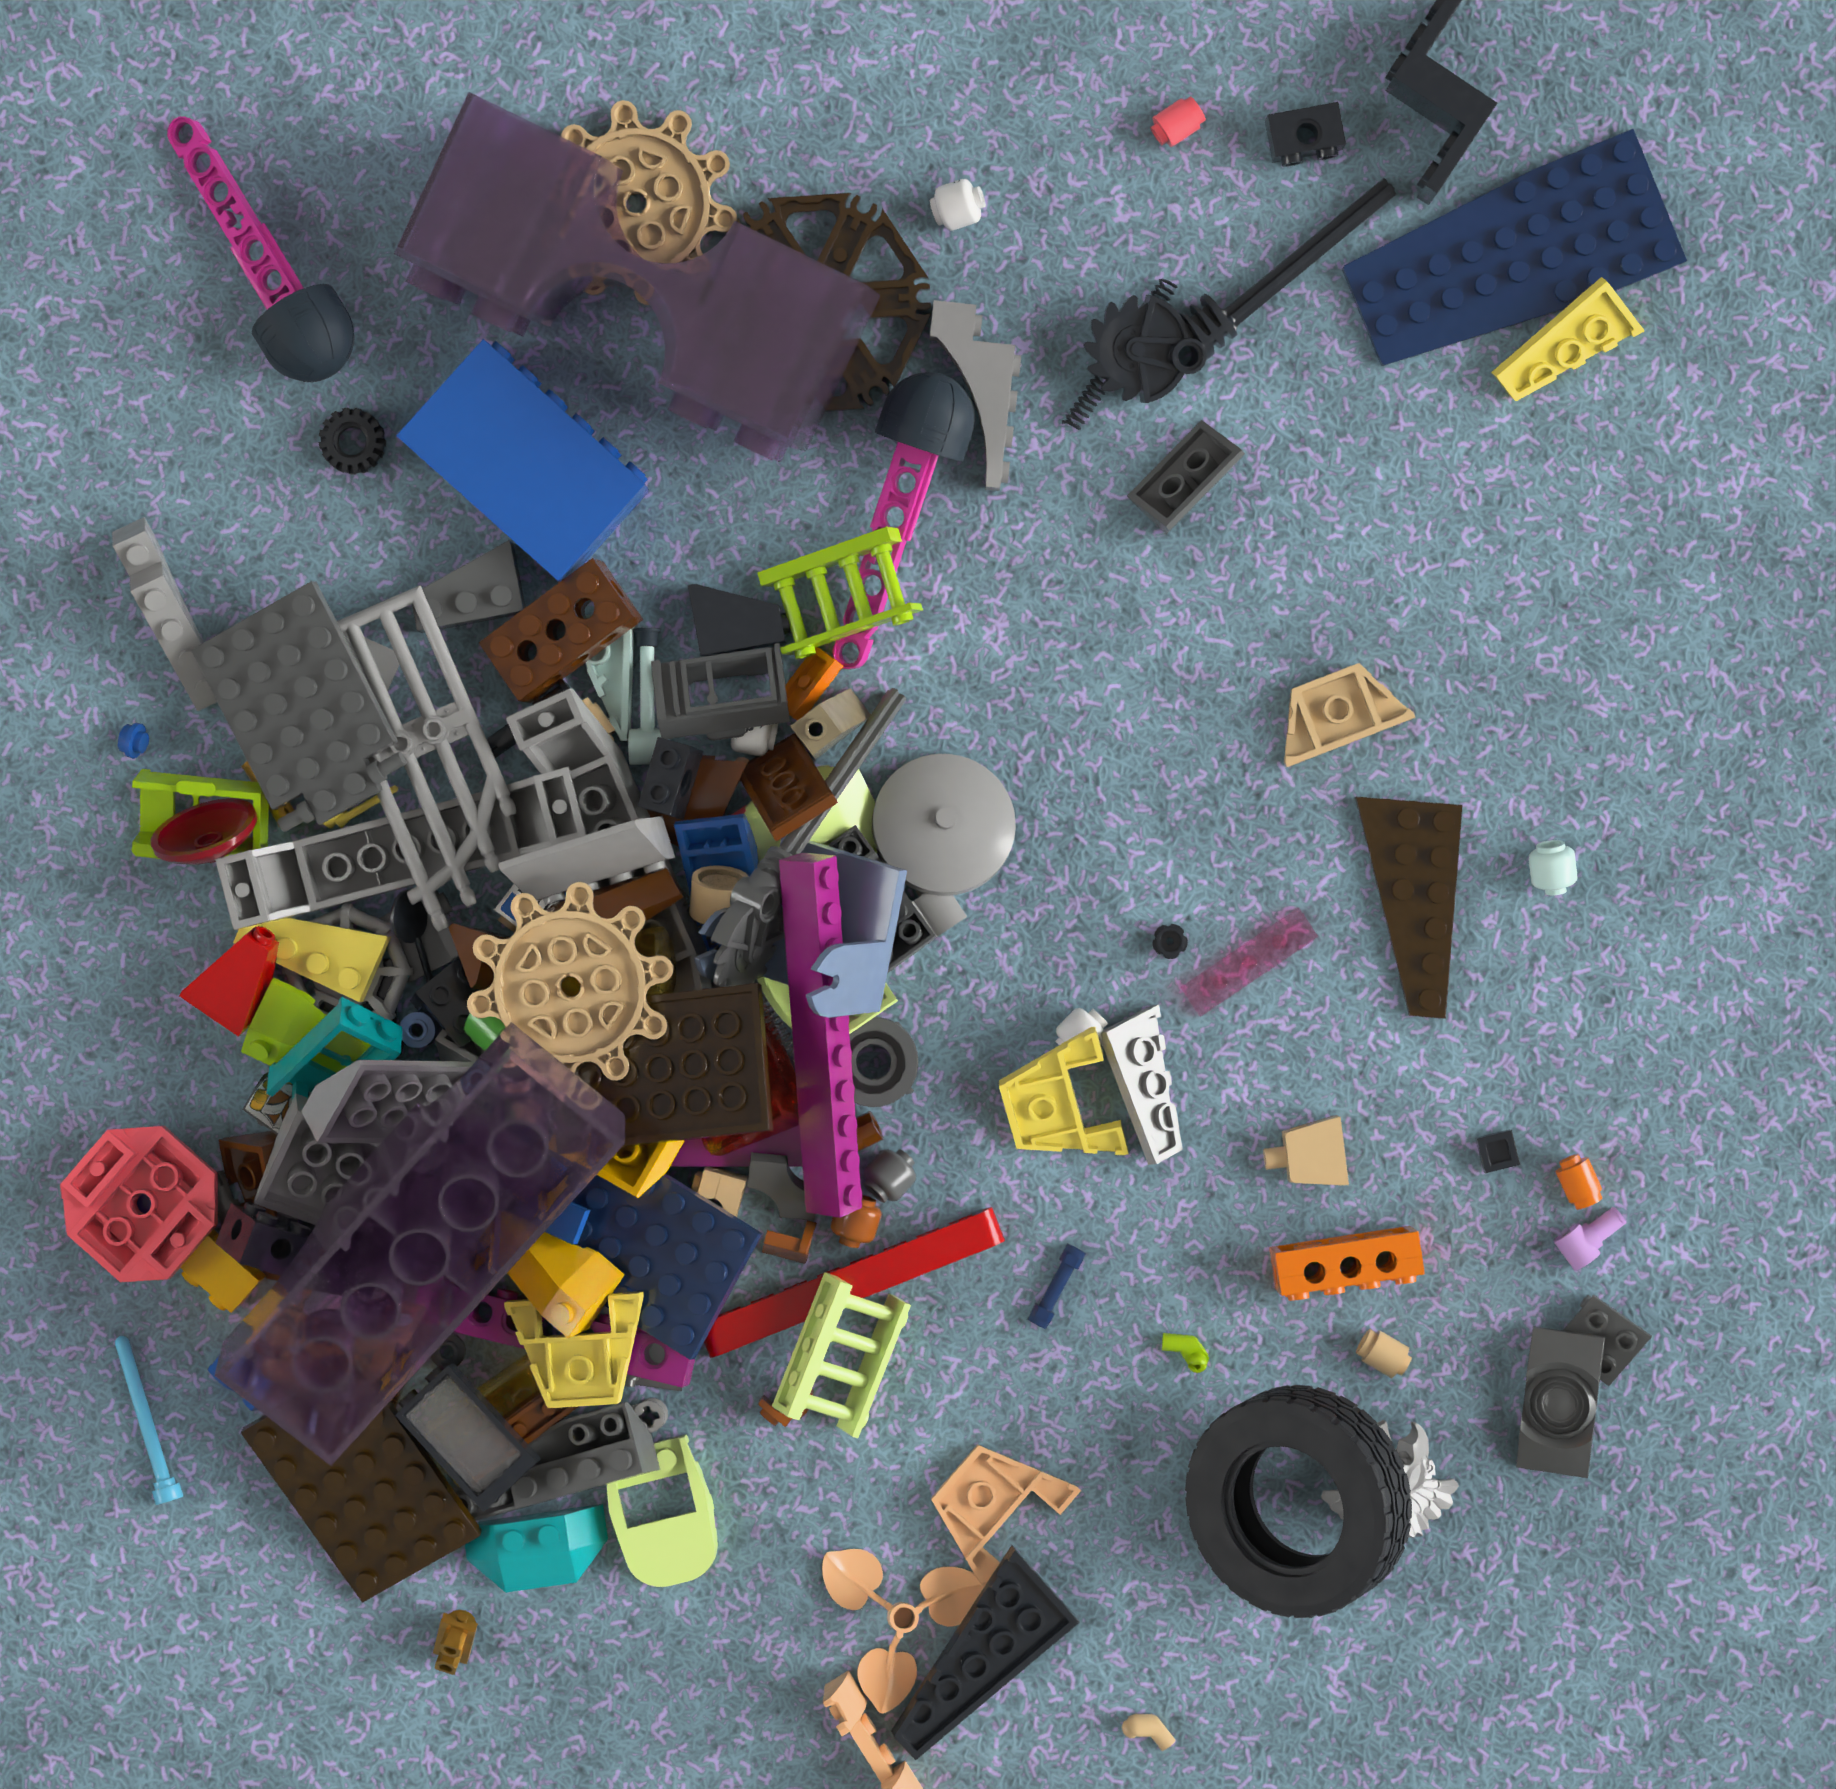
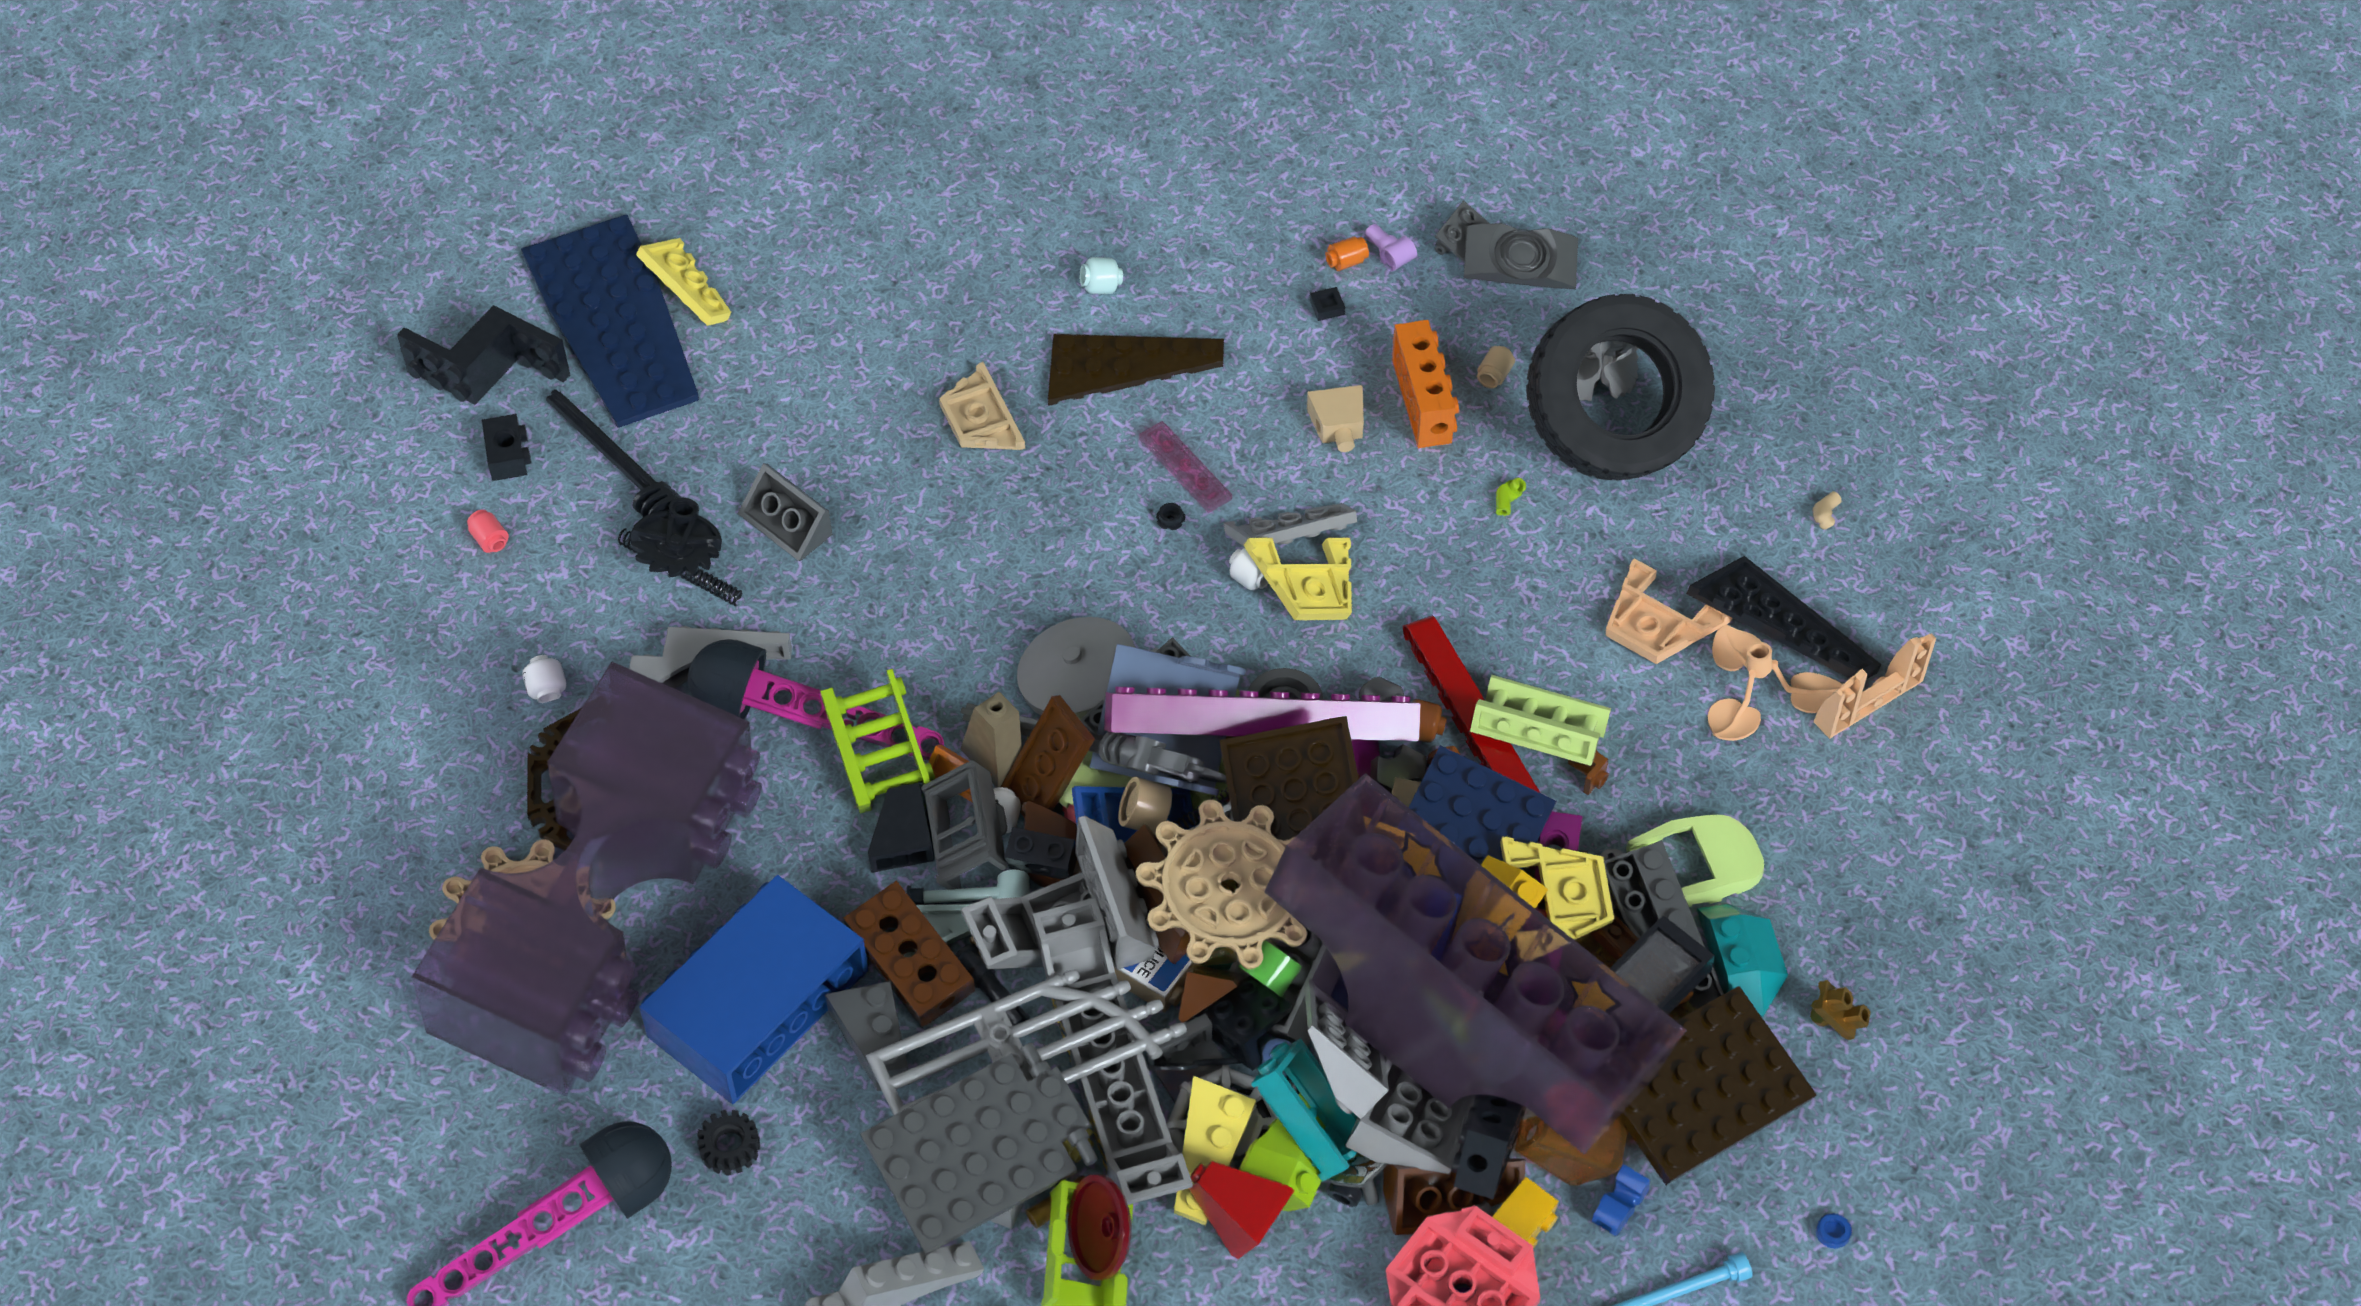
camera: 95 degrees left, 35 degrees down
(207, 1597) = (1833, 1230): none -> blue tile
(1042, 1313) = (1489, 593): dark blue bar -> none

